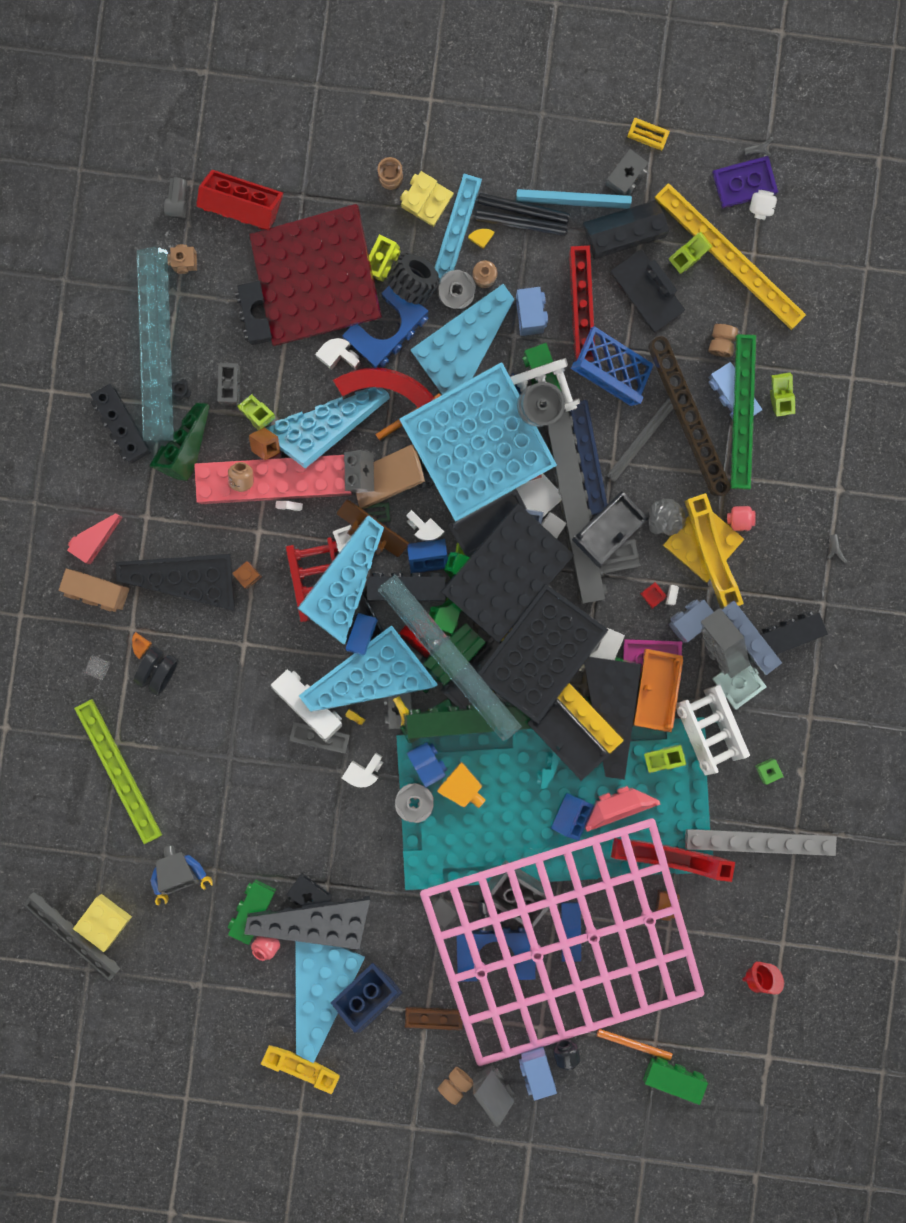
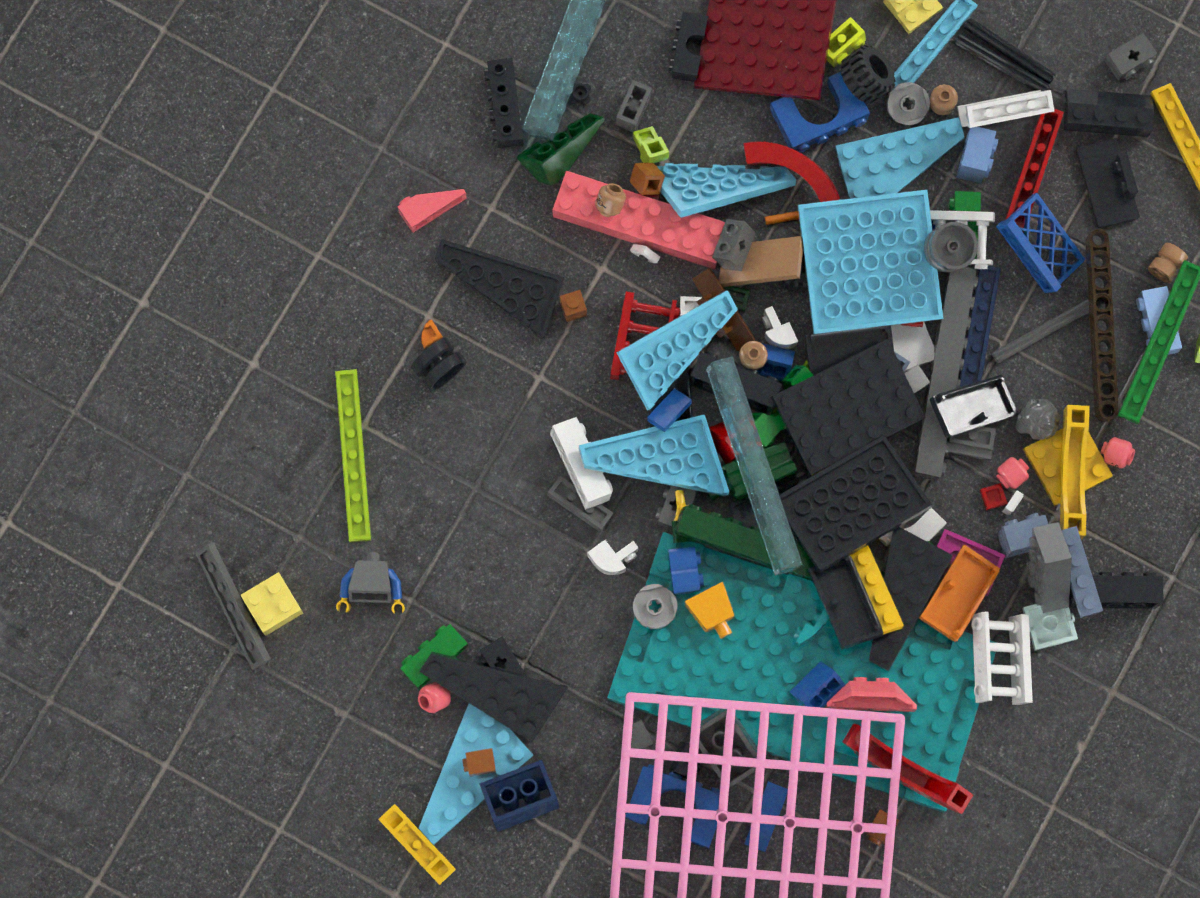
camera: 15 degrees right, 10 degrees down
(93, 590) = (408, 257): medium nougat brick -> none
(97, 667) = (376, 340): clear plate -> none
(323, 986) = (479, 762): none -> dark orange brick
(336, 349) = (755, 116): white brick -> none
(352, 715) = (626, 497): yellow tile -> none
(412, 561) = (753, 355): none -> medium nougat head
(433, 1018) = (581, 850): reddish brown tile -> none
(481, 237) = (954, 62): yellow tile -> none
(540, 262) = (1005, 108): none -> white fence
(573, 199) = (1065, 61): medium azure tile -> none
(644, 140) = (1165, 34): yellow tile -> none
(662, 570) = (1012, 473): none -> coral head
(665, 758) = (940, 665): lime brick -> none
(690, 252) = (1167, 161): lime brick -> none
(760, 842) = (1011, 800): light grey plate -> none
(771, 777) = (1040, 723): bright green piece -> none

